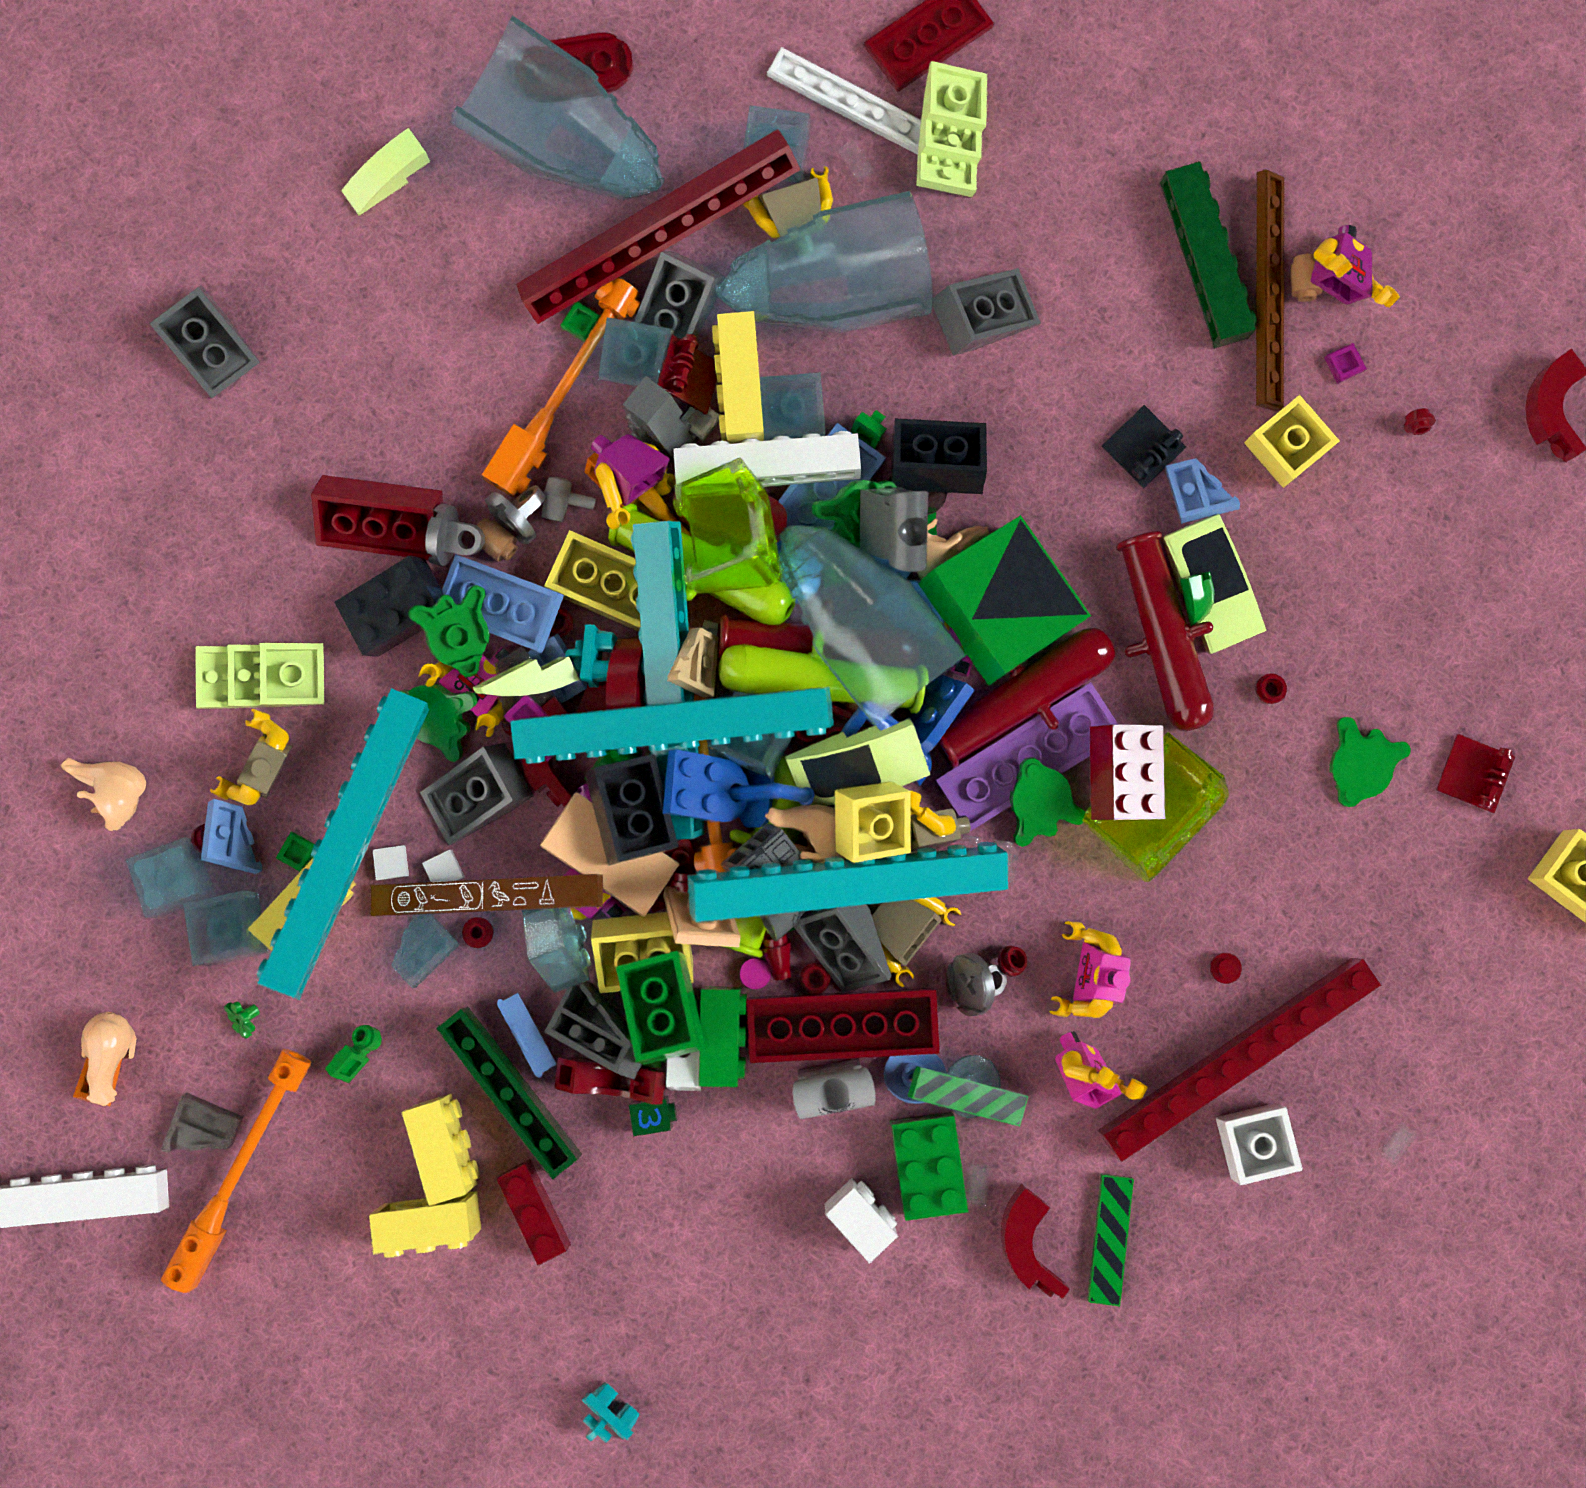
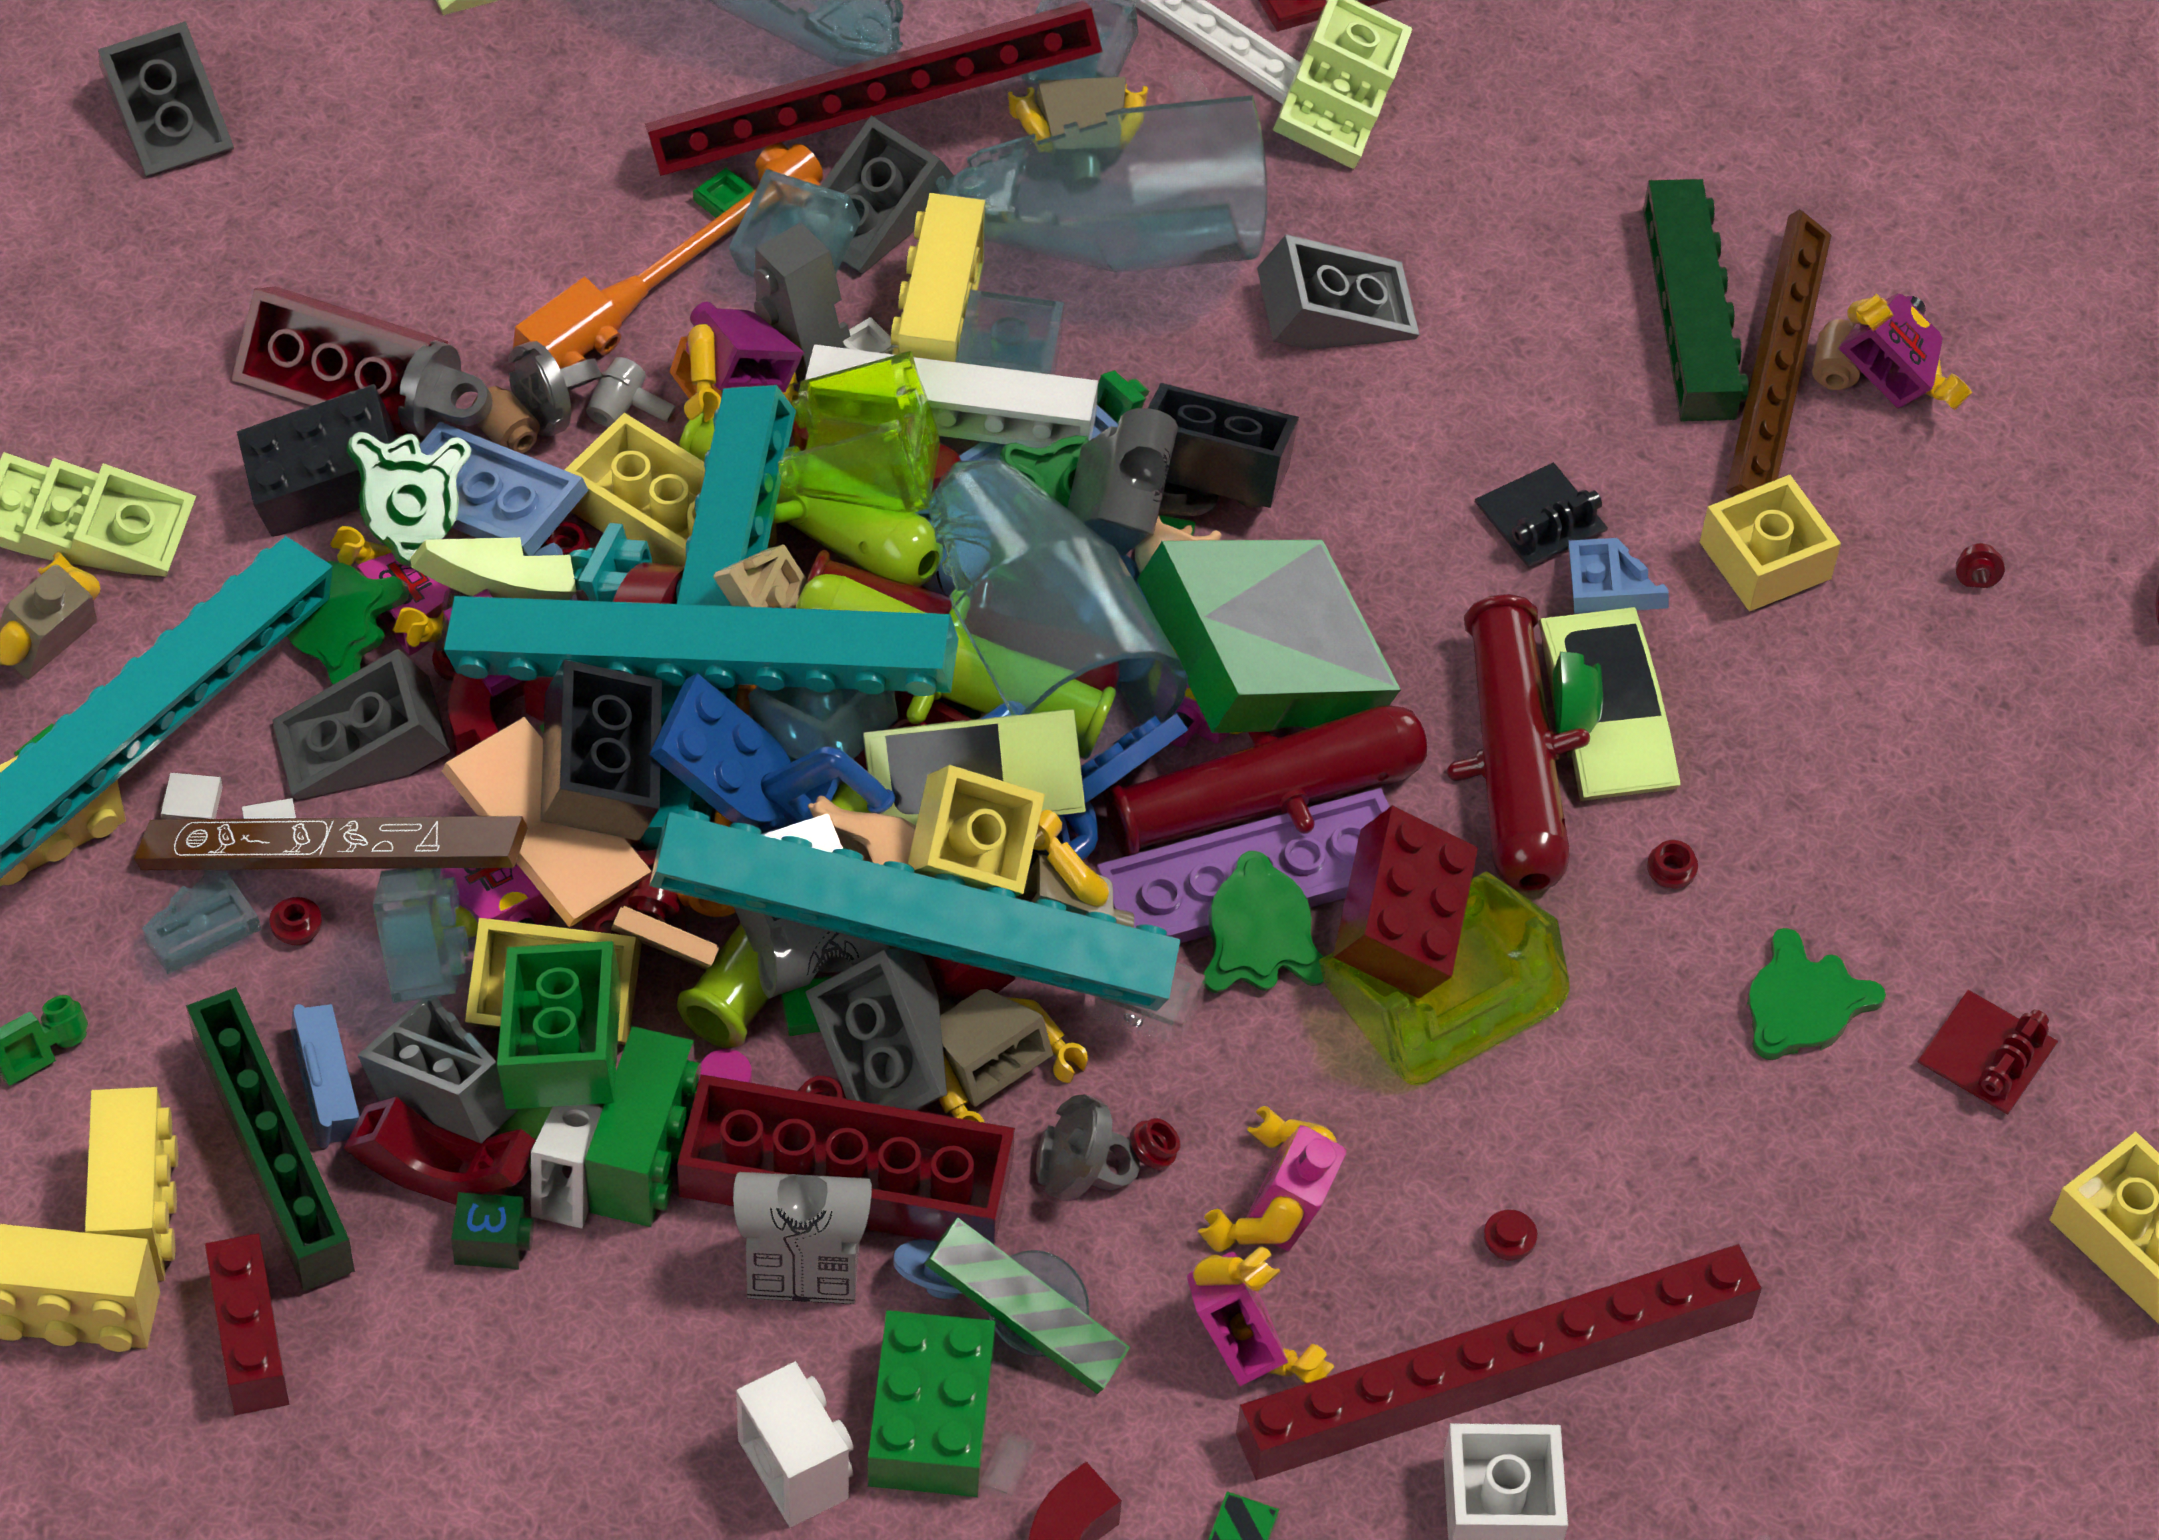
camera: 10 degrees right, 30 degrees down
(688, 373) = (867, 273): dark red hinge -> none
(777, 956) = (770, 1047): dark red cone -> none
(1345, 363) = (1880, 476): magenta tile -> none

